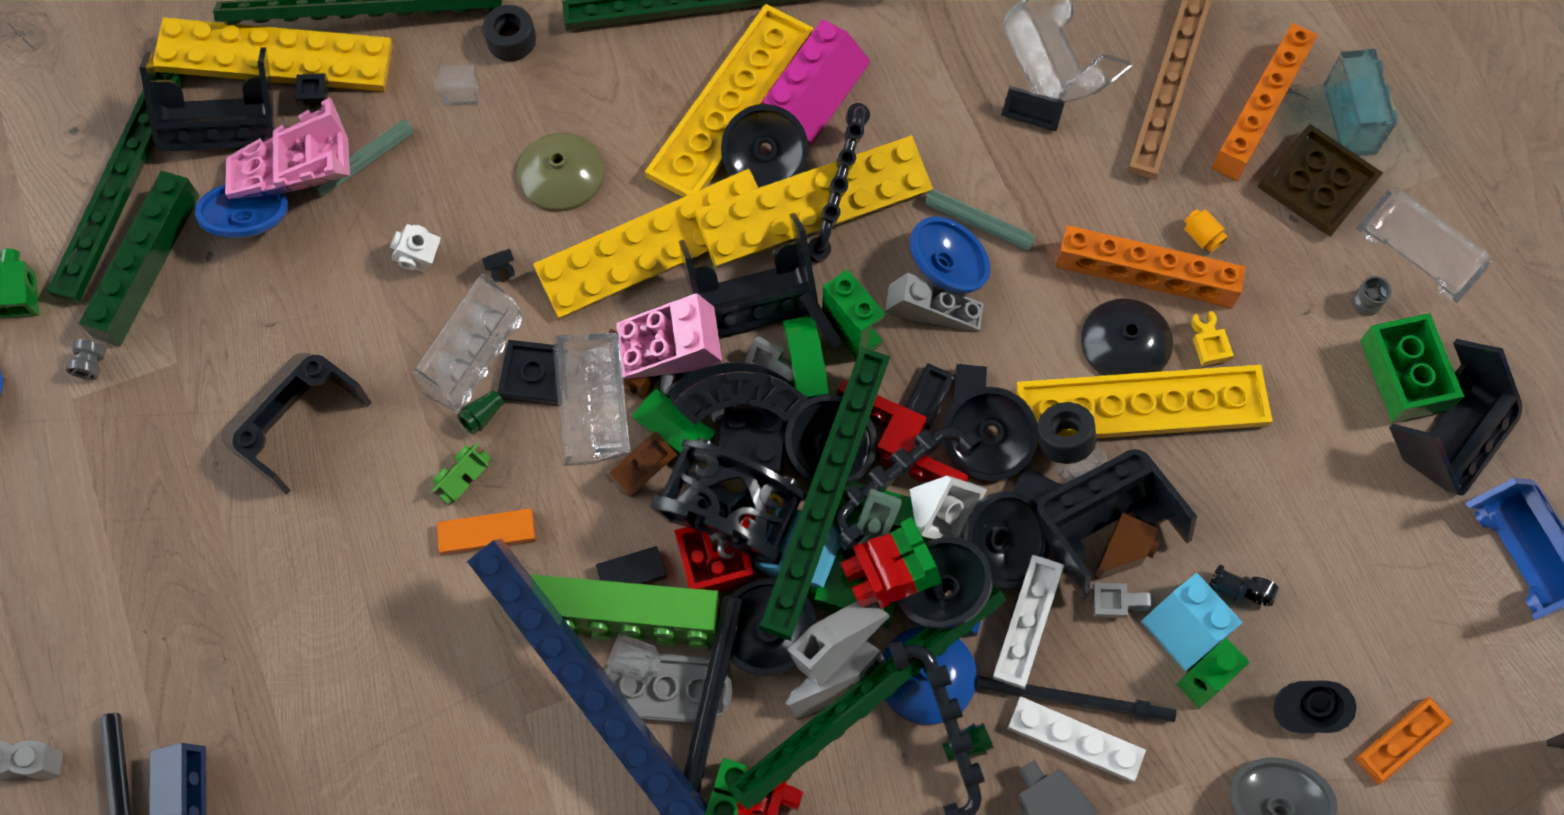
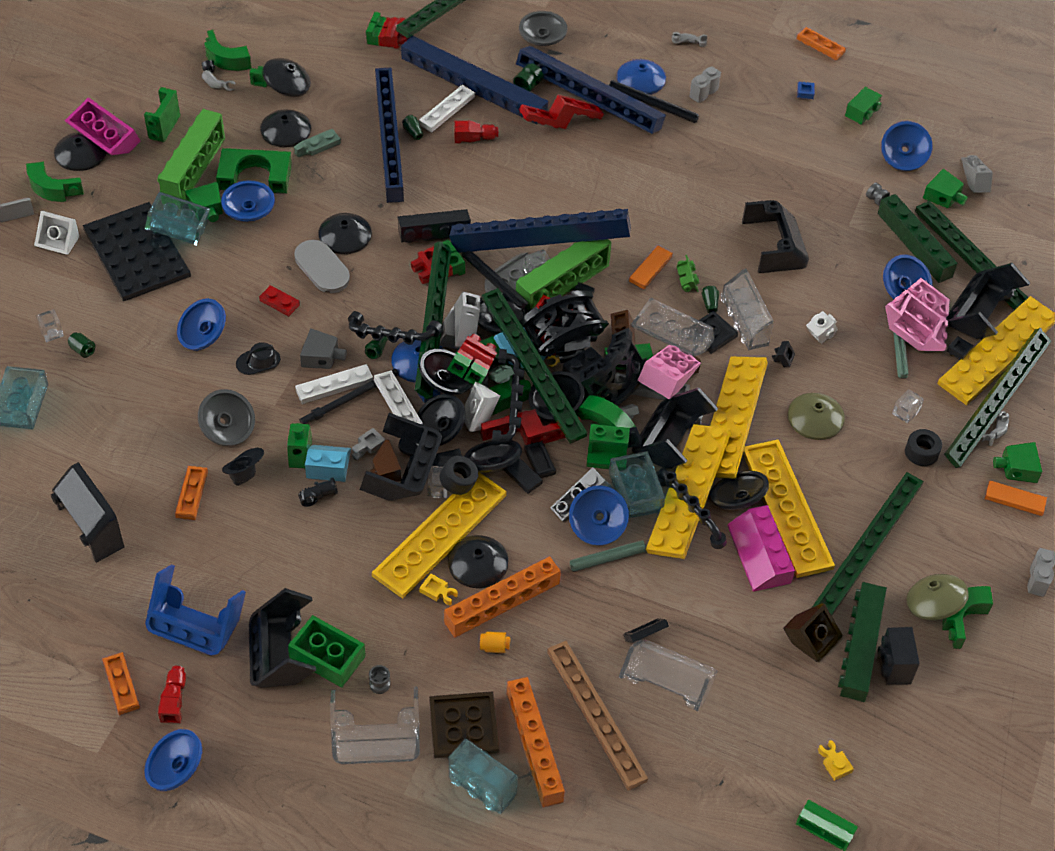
camera: 130 degrees right, 15 degrees down
(868, 248) = (637, 483): none -> clear light blue brick

